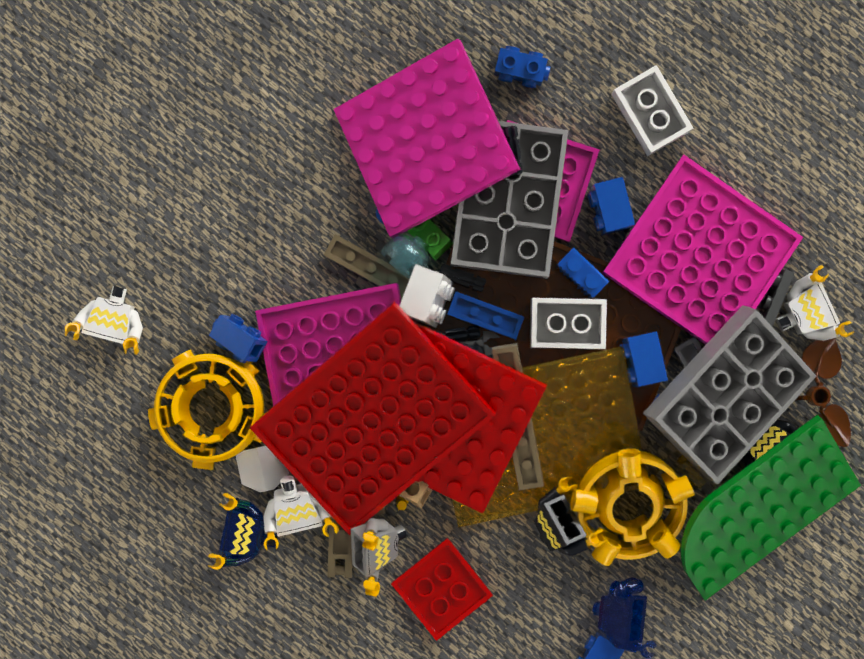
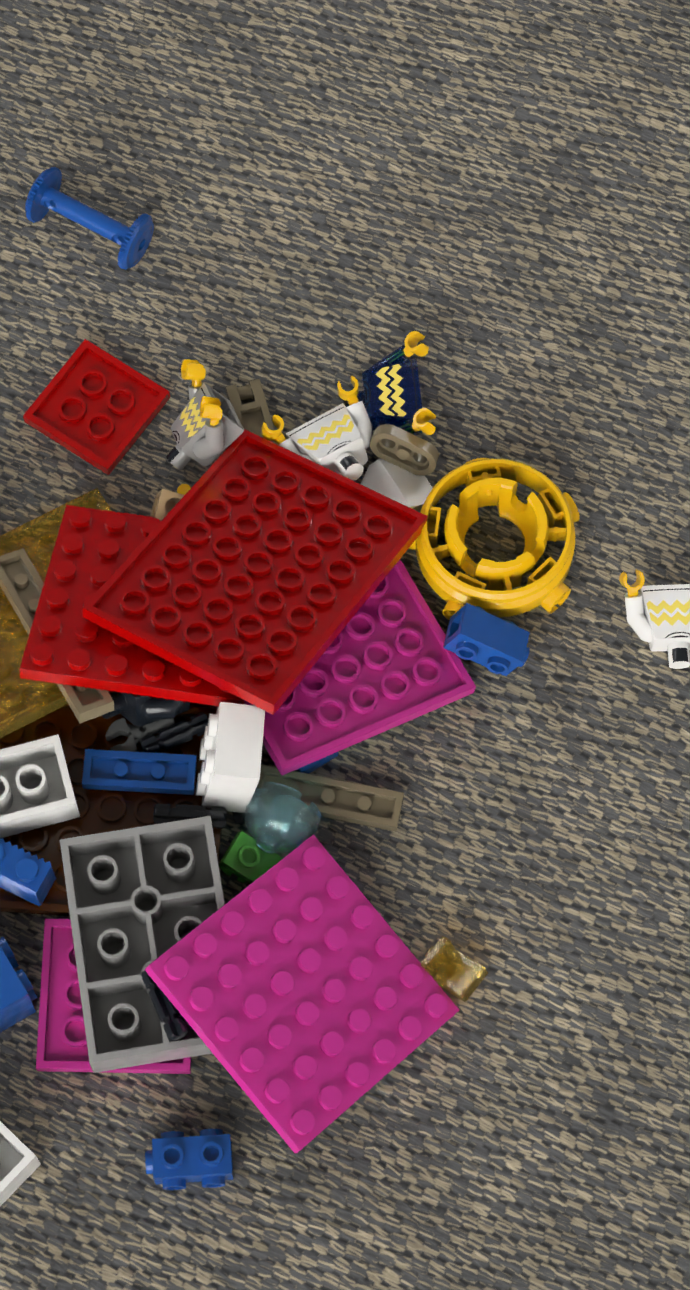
camera: 160 degrees right, 20 degrees down
(248, 490) = (404, 449): none -> dark tan plate
(329, 133) = (453, 969): none -> clear yellow bracket

